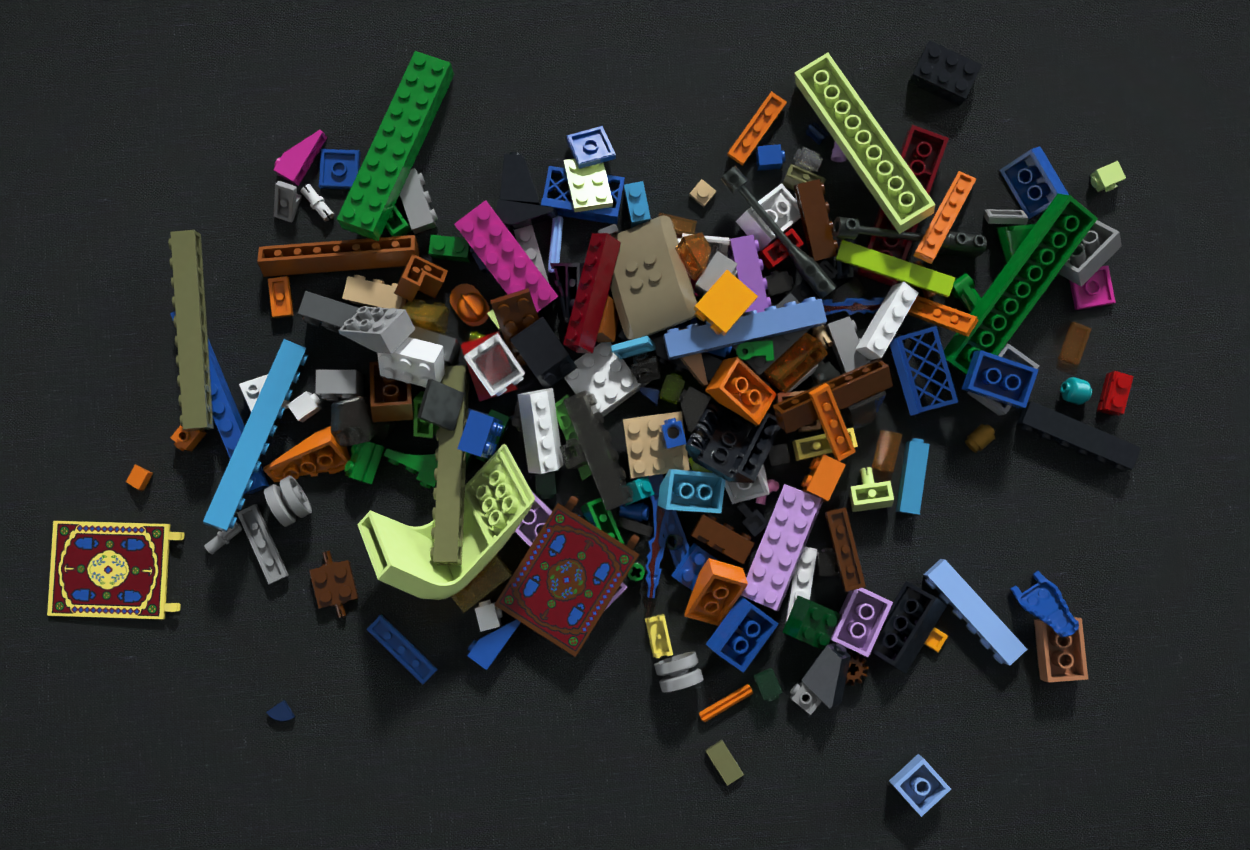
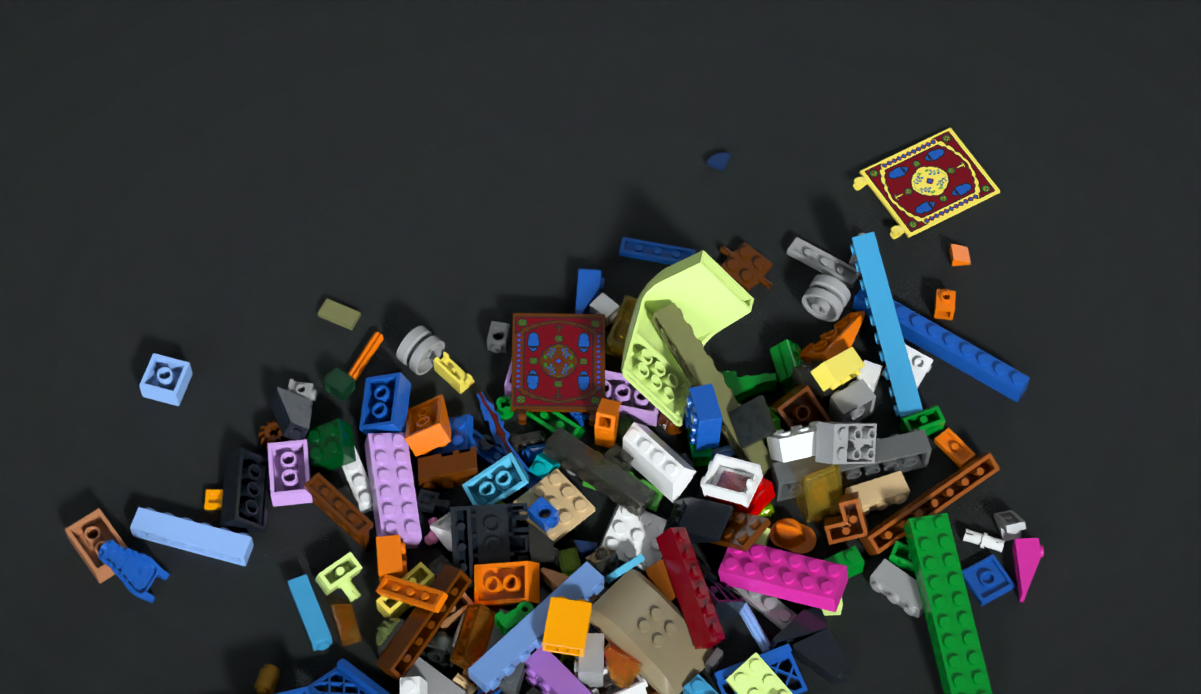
camera: 145 degrees right, 25 degrees down
(191, 330) = (1000, 370): olive brick -> none
(292, 330) = (930, 420): none -> green brick
(330, 415) = (838, 369): none -> light yellow brick
(561, 491) = (607, 422): none -> orange slope
(596, 655) = (501, 330): none -> dark grey brick

